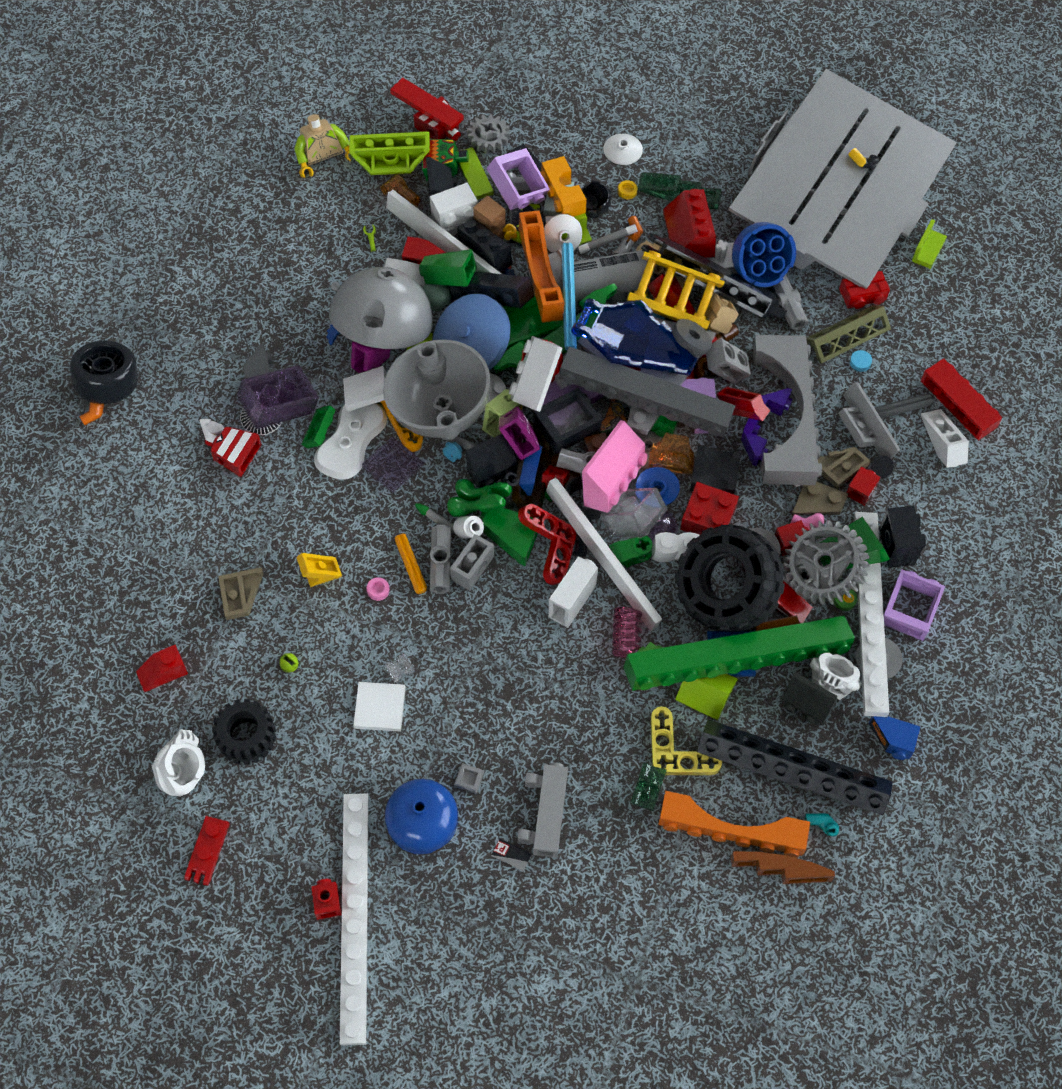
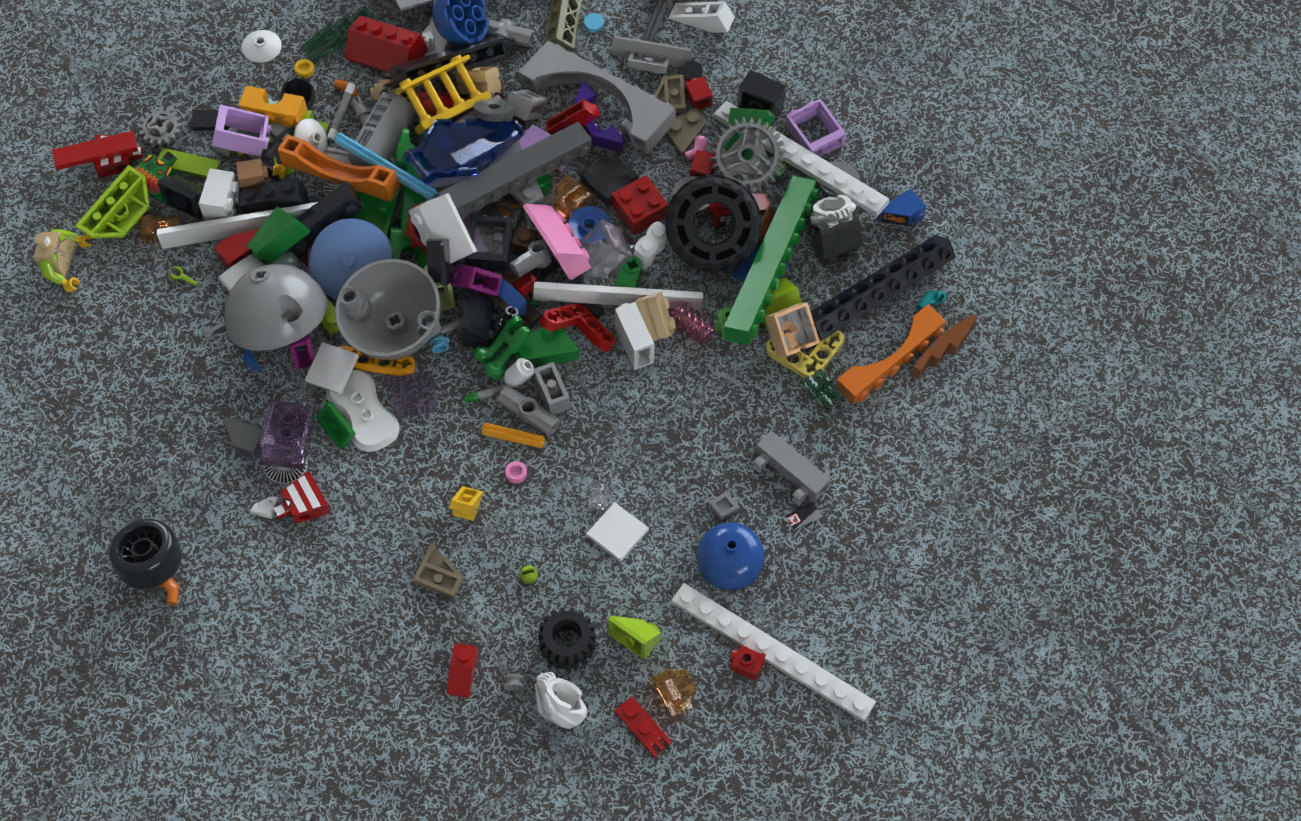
camera: 55 degrees left, 0 degrees up
(177, 717) = (513, 682): none -> light grey bush
(256, 854) = (675, 690): none -> clear orange slope
(284, 786) = (634, 634): none -> lime slope
(507, 392) = (439, 260): none -> black panel
(603, 595) = (656, 315): none -> tan brick
(685, 730) = (798, 327): none -> light nougat piece

